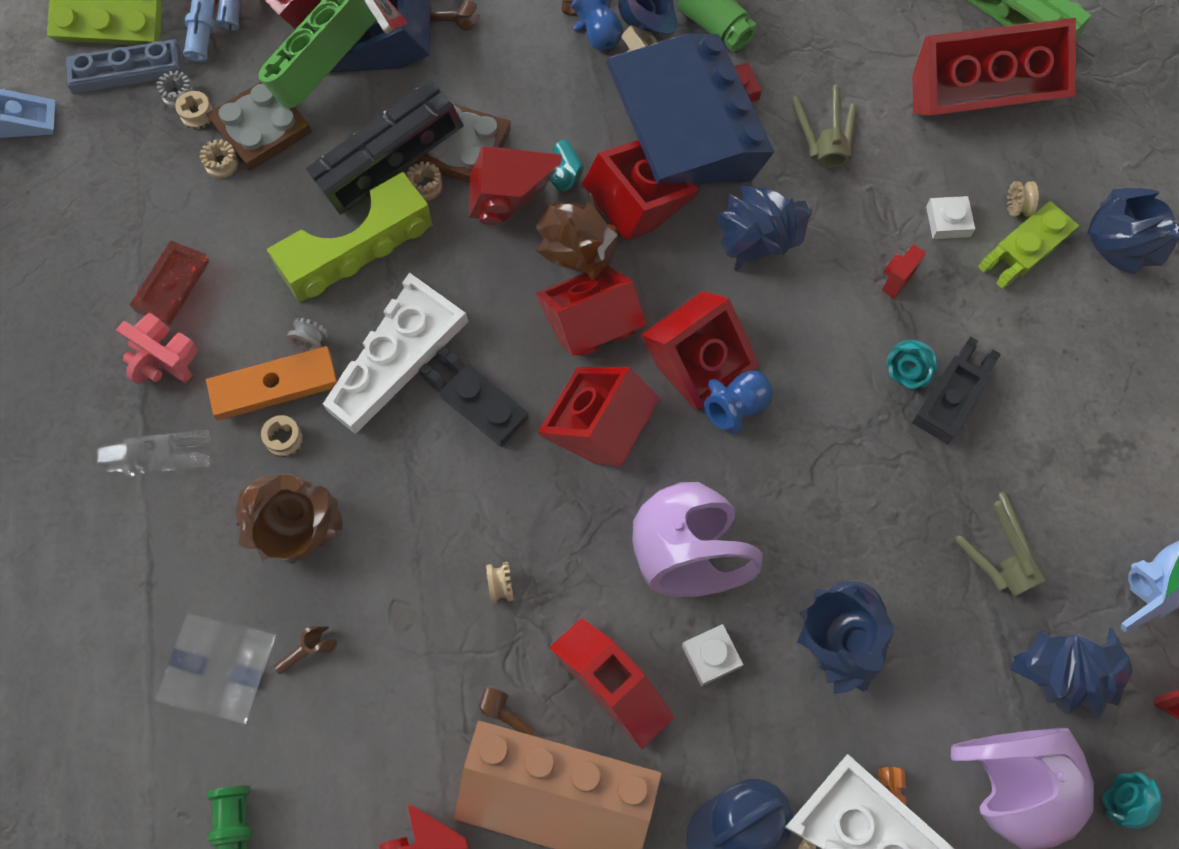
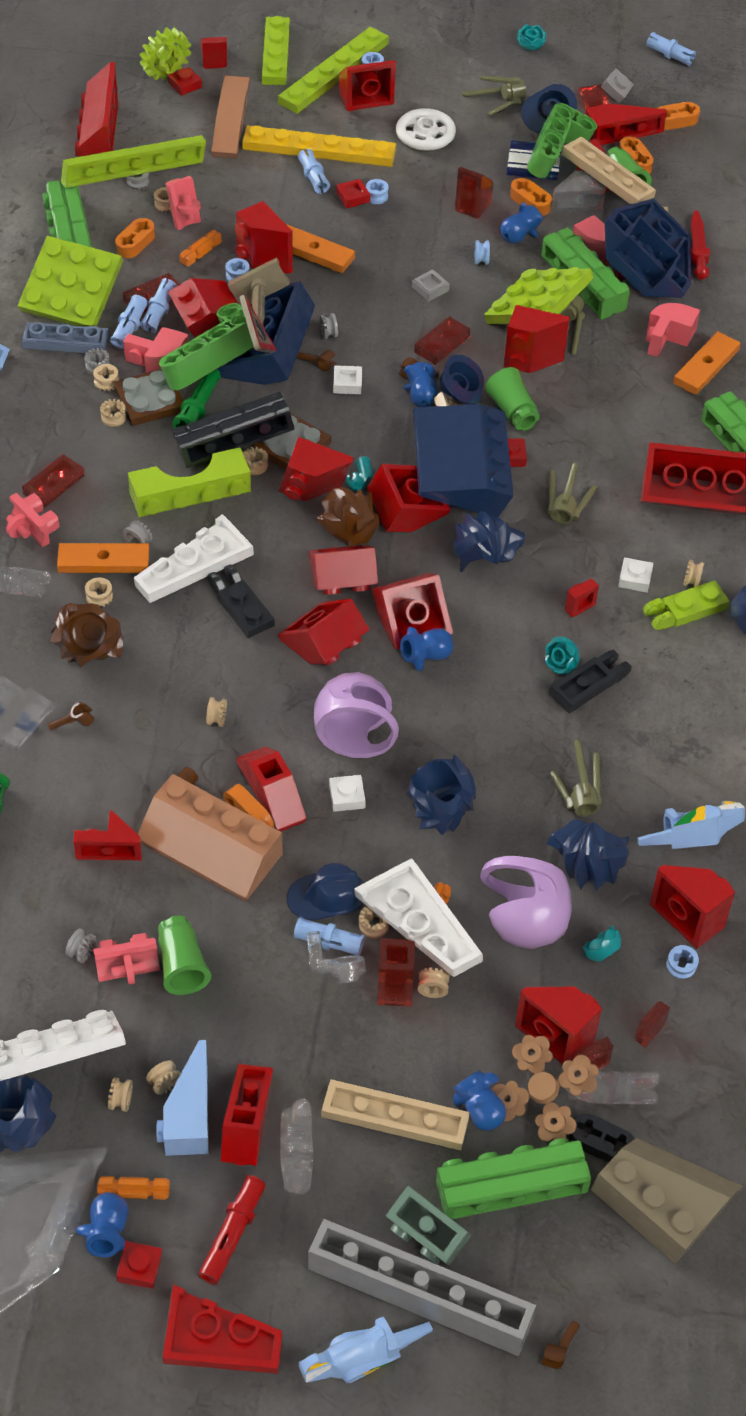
camera: 15 degrees right, 15 degrees down
(244, 60) = (149, 352): none -> coral brick
(321, 126) = (194, 407): none -> green pin
(503, 36) = (347, 379): none -> white plate
(594, 730) = (244, 801): none -> orange beam

